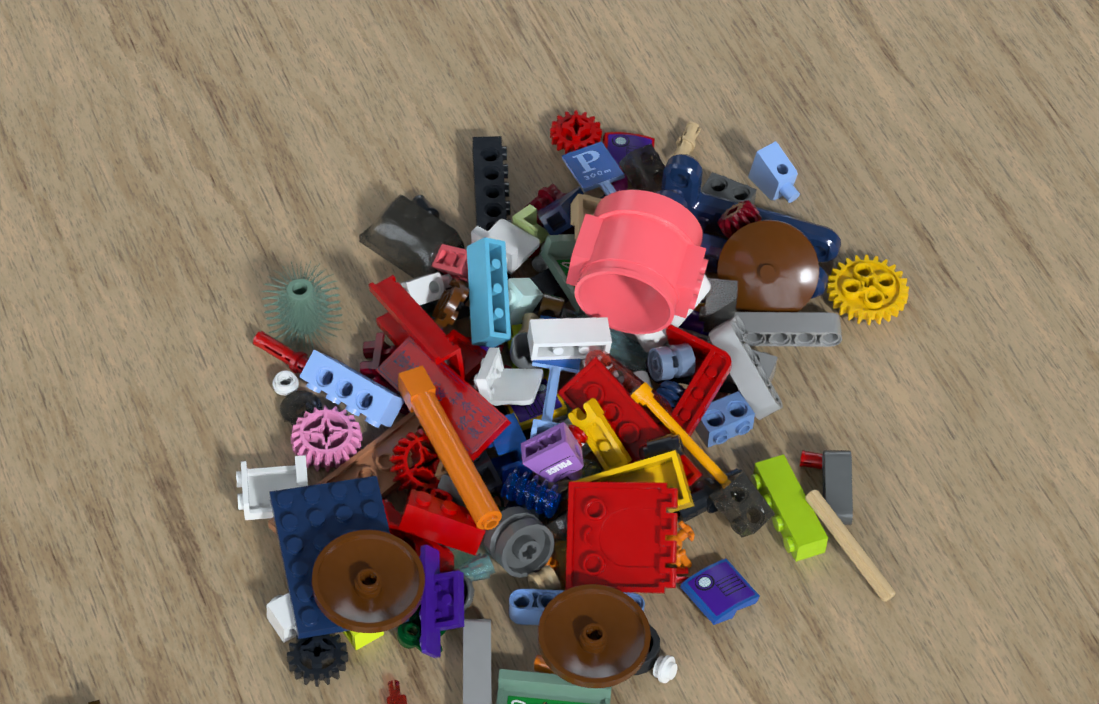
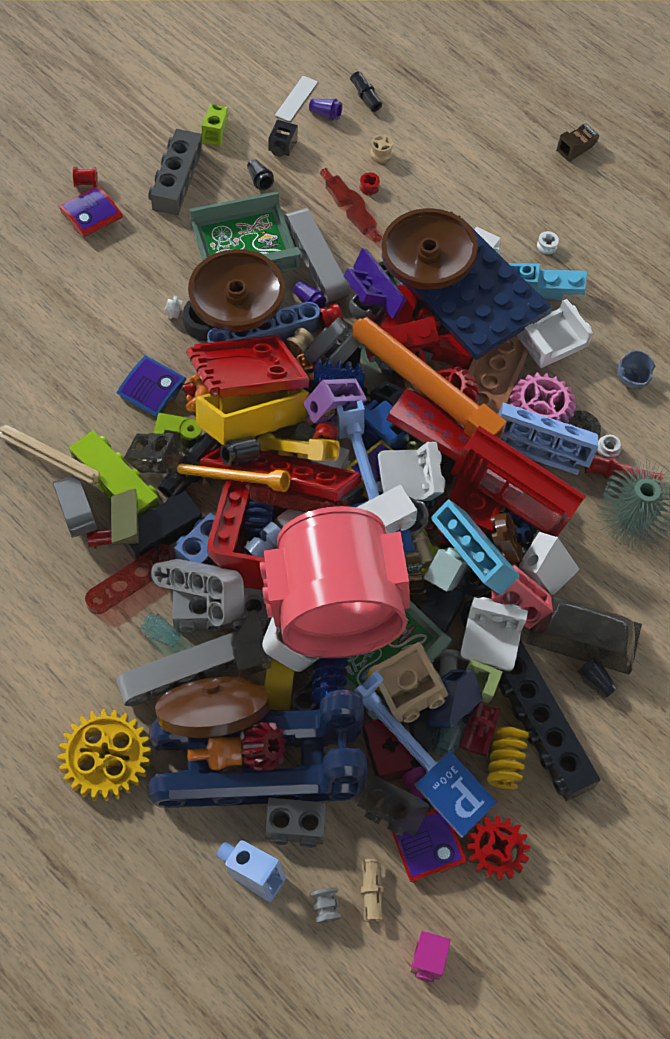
camera: 155 degrees right, 10 degrees up
(198, 606) = (550, 237): none -> white bush
(211, 436) = (635, 369): none -> sand blue hair
(241, 563) = (552, 283): none -> medium azure slope
(497, 599) = (329, 315): none -> red wheel
(508, 633) = (309, 294): none -> dark purple cone
(538, 174) = (505, 757): none -> yellow piece
(661, 92) = (430, 956): none -> dark pink brick
(712, 535) = (181, 426): none -> lime leg
(726, 144) = (326, 905): none -> light grey bush
(746, 447) = (165, 524): none -> black brick
(791, 366) = (160, 630): none -> clear light blue cone
(793, 446) = (124, 518): none -> olive slope
(799, 414) = (127, 575): none -> clear red beam

